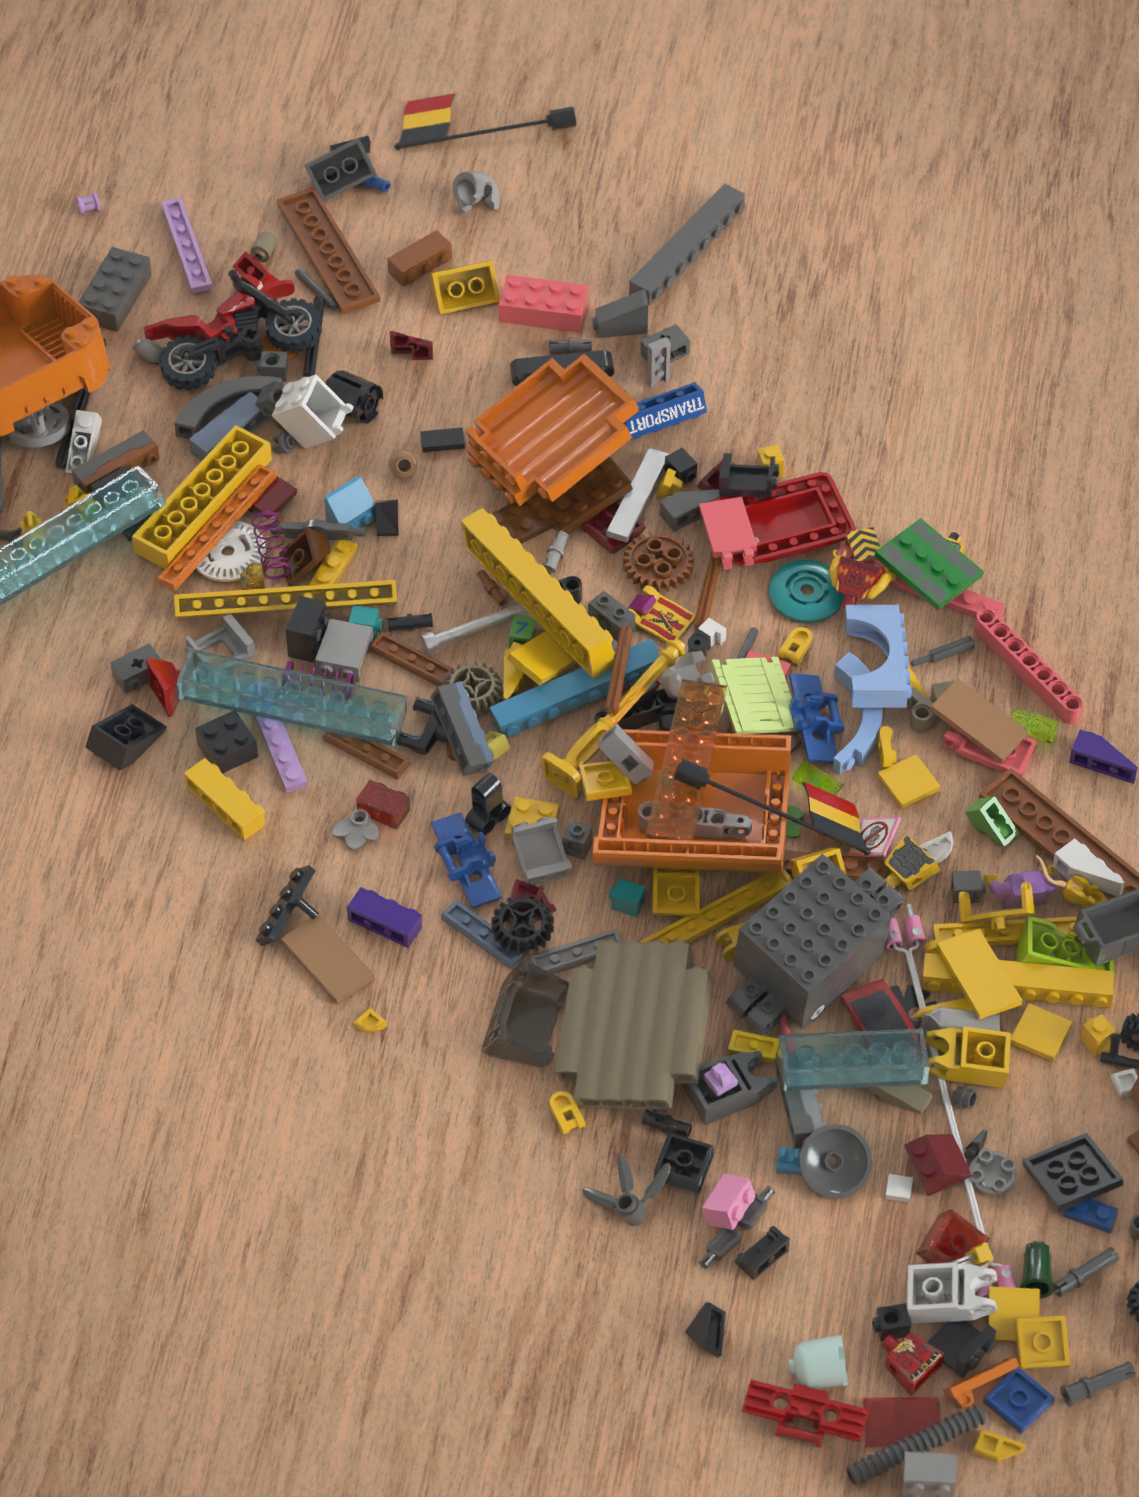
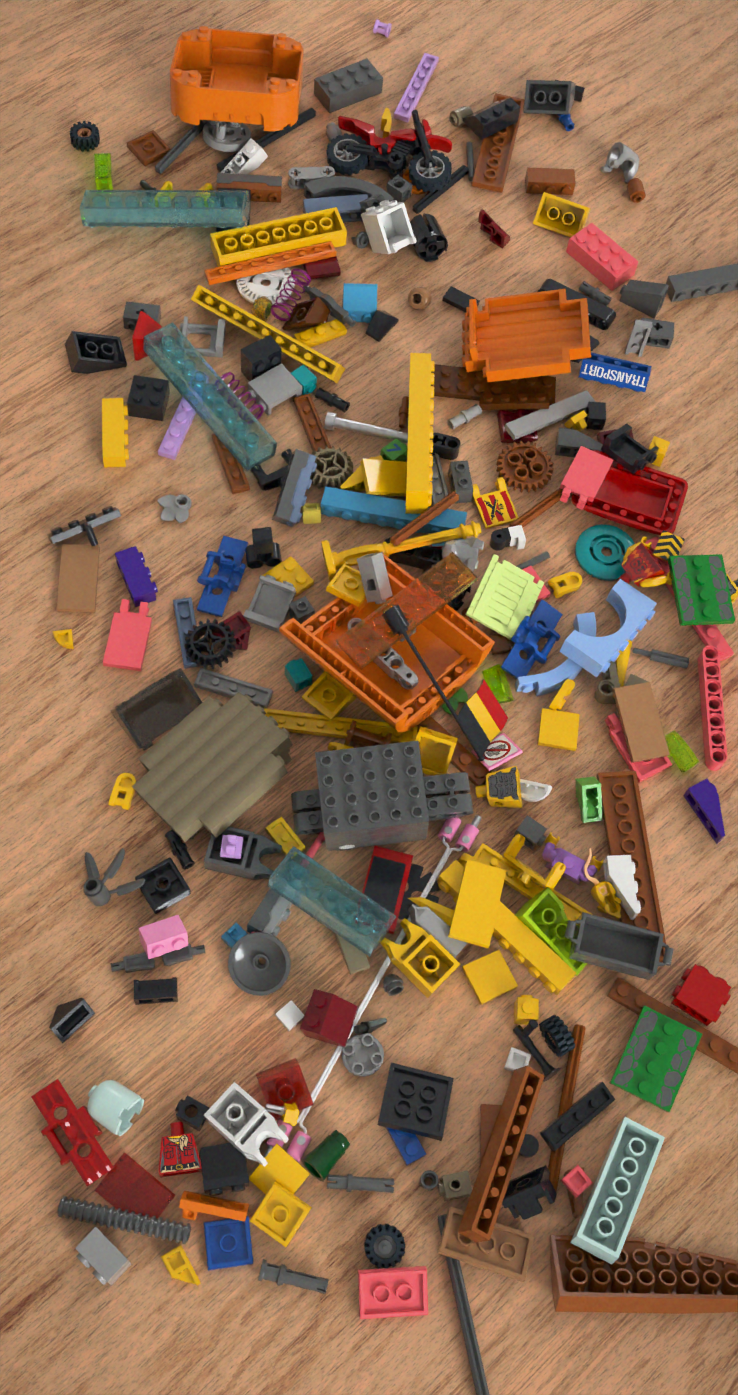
camera: 30 degrees right, 10 degrees up
(167, 412) = (307, 174): none -> light grey piece
(195, 305) = (386, 123): none -> yellow slope
(249, 265) = (439, 124): red brick -> none
(302, 227) = (493, 118): none -> black slope
(384, 804) = (205, 503): clear red brick -> none
(430, 118) = (636, 103): flag -> none
(432, 977) = (128, 637): none -> coral tile
(515, 212) = (636, 190): none -> dark orange brick
(642, 604) = (488, 487): magenta tile -> none
(734, 909) = (365, 737): none -> dark orange hose

